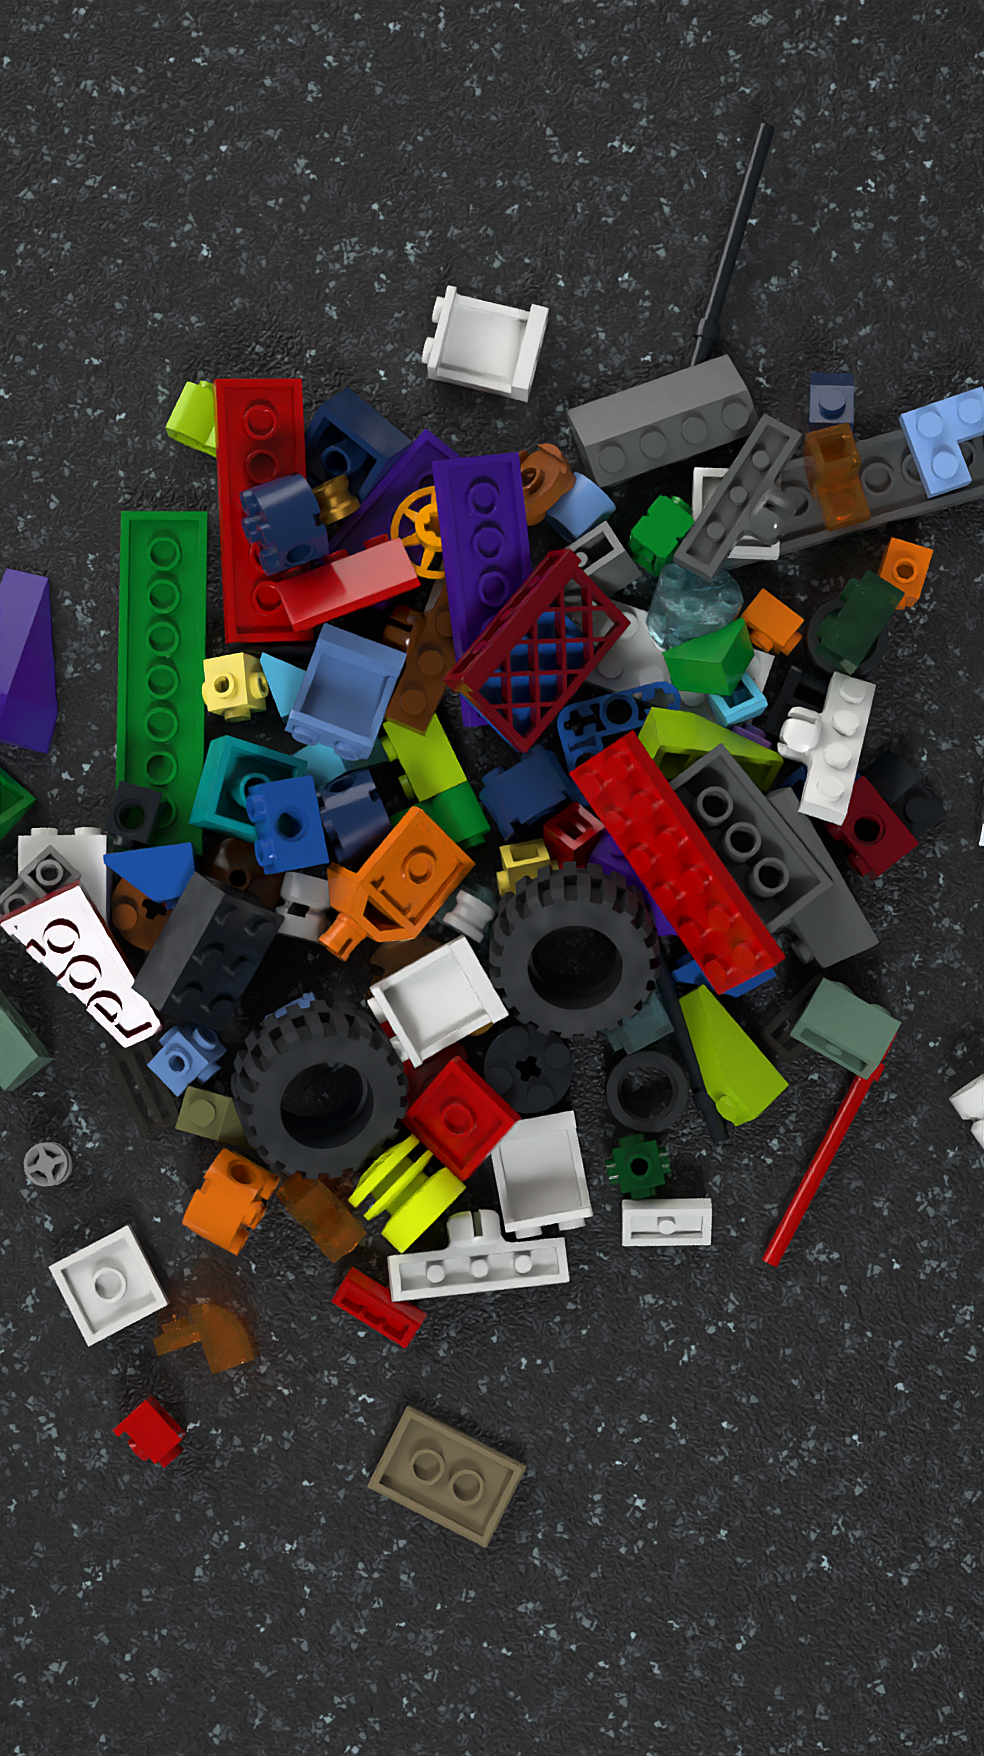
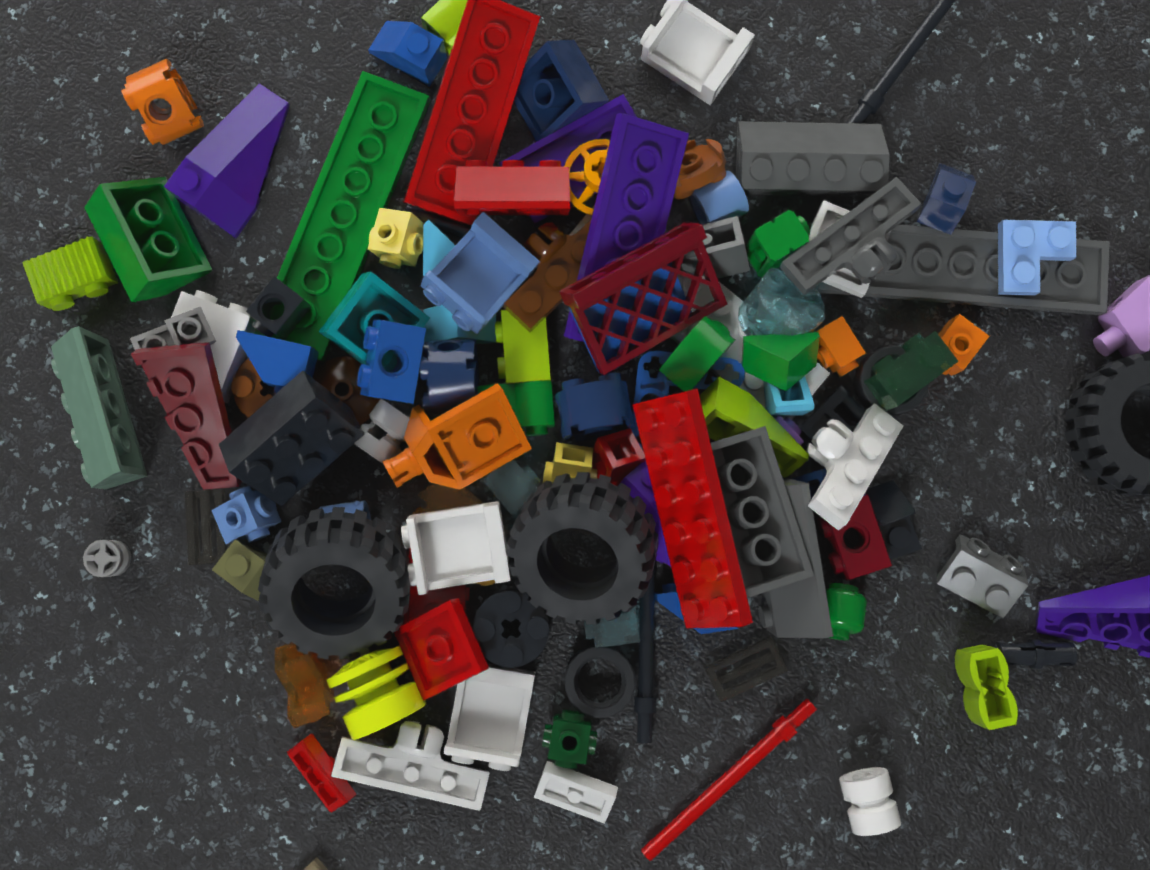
camera: 15 degrees right, 0 degrees up
(109, 1285) = (116, 673): white plate -> none
(152, 1432) = (103, 804): red brick -> none
(163, 467) = (410, 50): none -> blue slope
(218, 1327) = (188, 744): clear orange brick -> none
(230, 1201) = (233, 643): orange brick -> none
(283, 523) = (480, 120): dark blue brick -> none
(335, 500) = (530, 121): pearl gold wheel -> none
(470, 916) = (509, 489): light grey wheel -> none
(619, 690) = (697, 353): none -> green brick
(729, 1061) = (675, 687): lime slope -> none
(833, 477) = (931, 245): clear orange brick -> none
(845, 1028) = (778, 693): sand green brick -> none
(887, 912) = (846, 610): none -> green head

